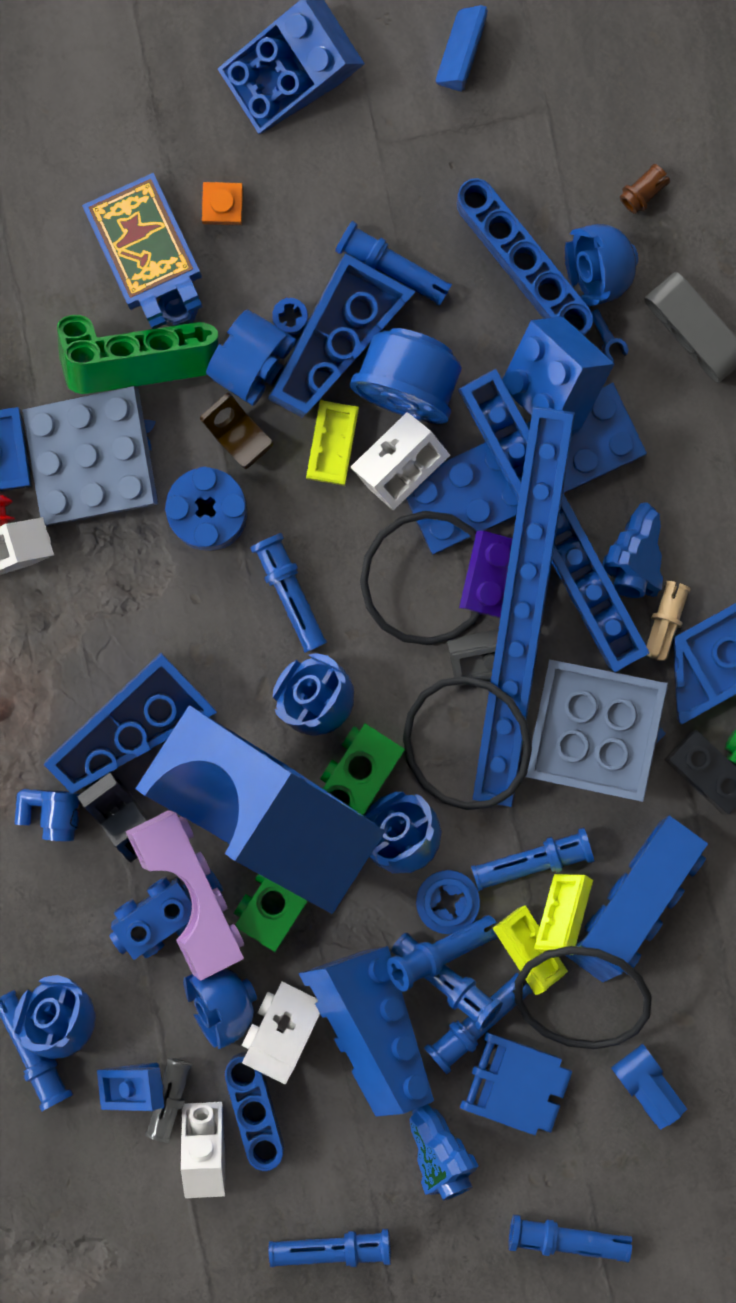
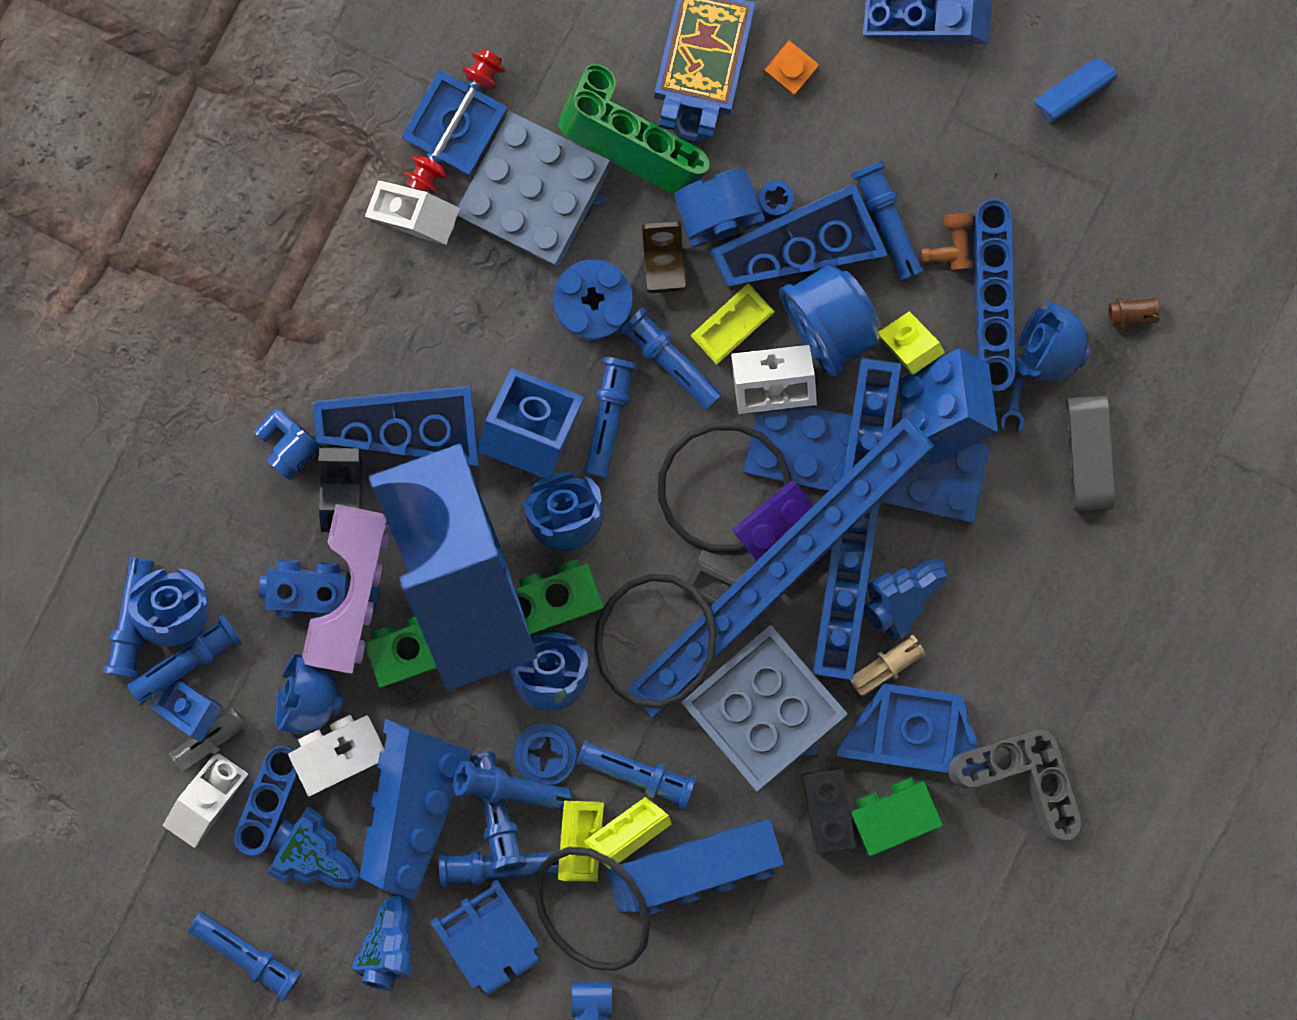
camera: 35 degrees right, 0 degrees up
(106, 1034) = (197, 652): none -> blue pin
(232, 646) = (530, 424): none -> blue brick
(287, 506) = (657, 345): none -> blue pin
(321, 1127) = (311, 853): none -> blue rock
(469, 248) = (958, 253): none -> dark orange piece
(488, 347) = (911, 342): none -> neon yellow plate

